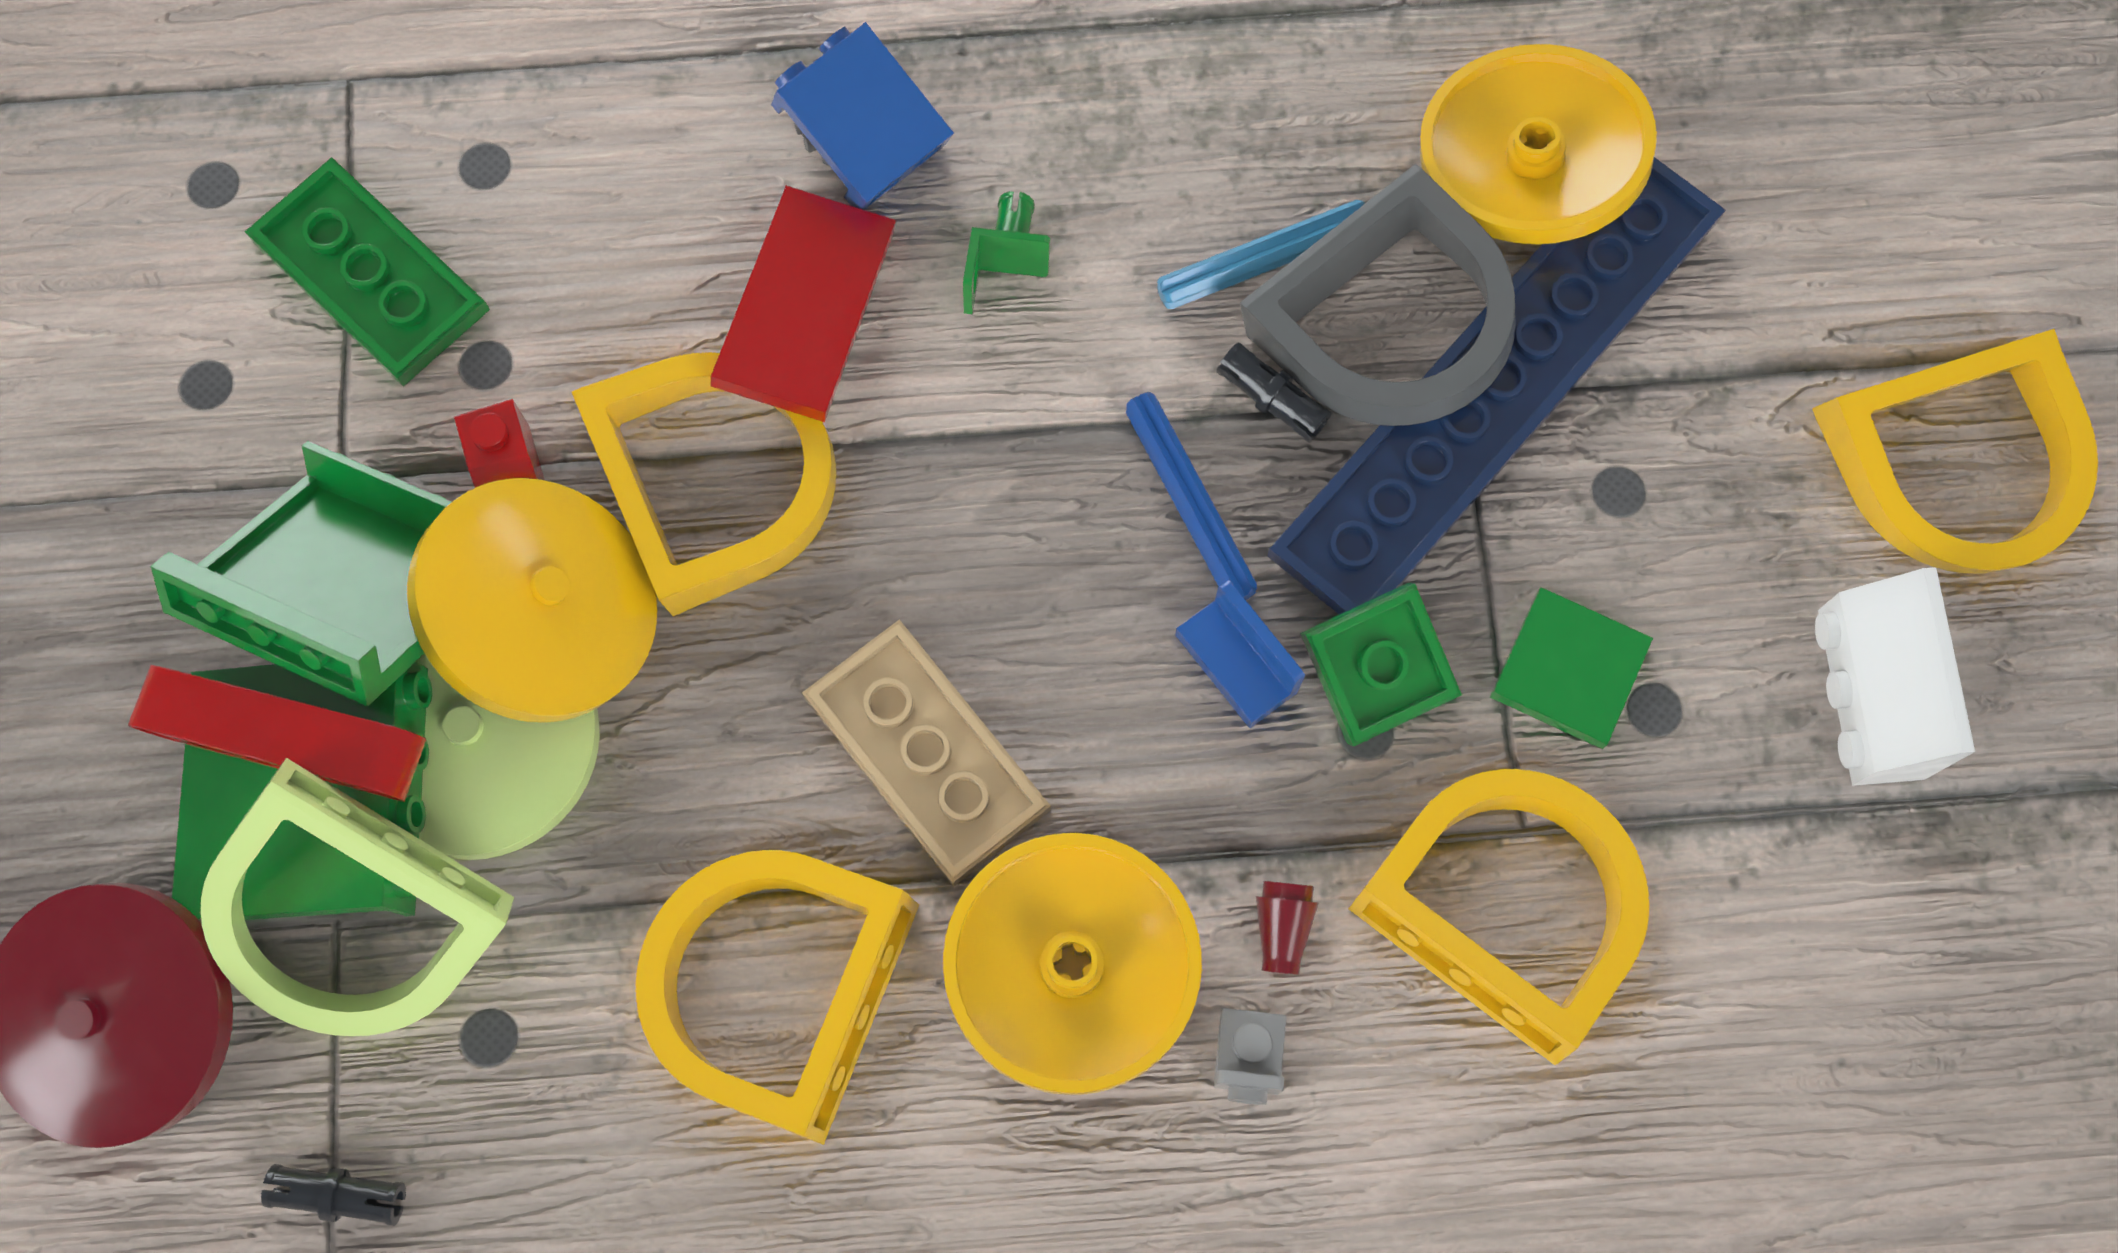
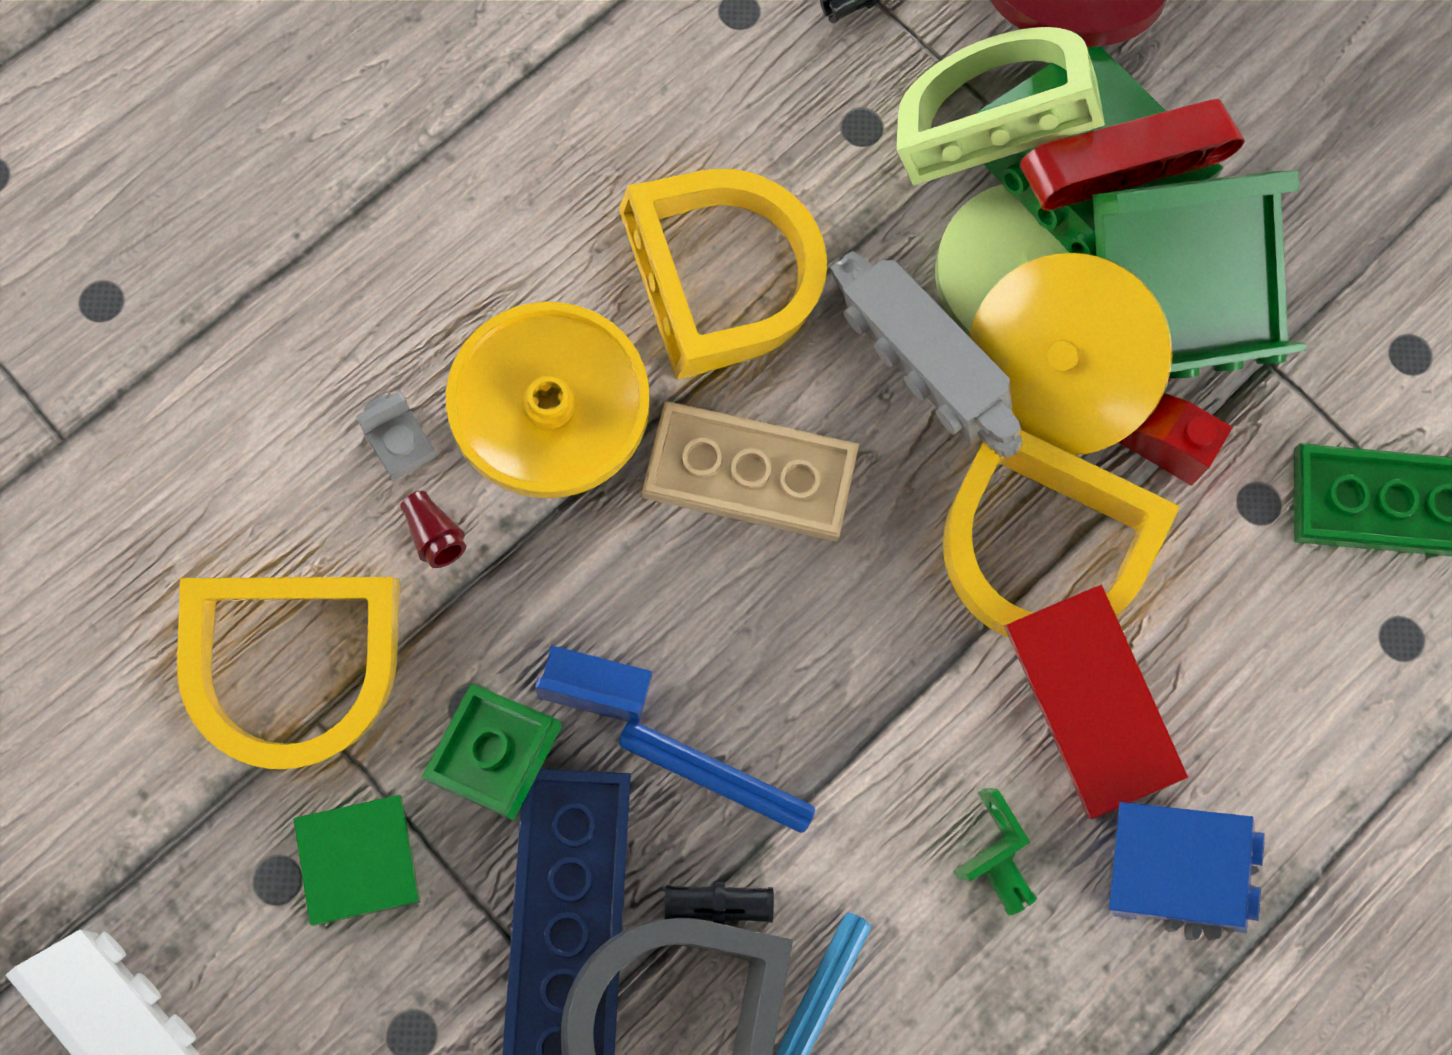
camera: 135 degrees right, 0 degrees up
(658, 718) = (931, 351): none -> light grey hinge

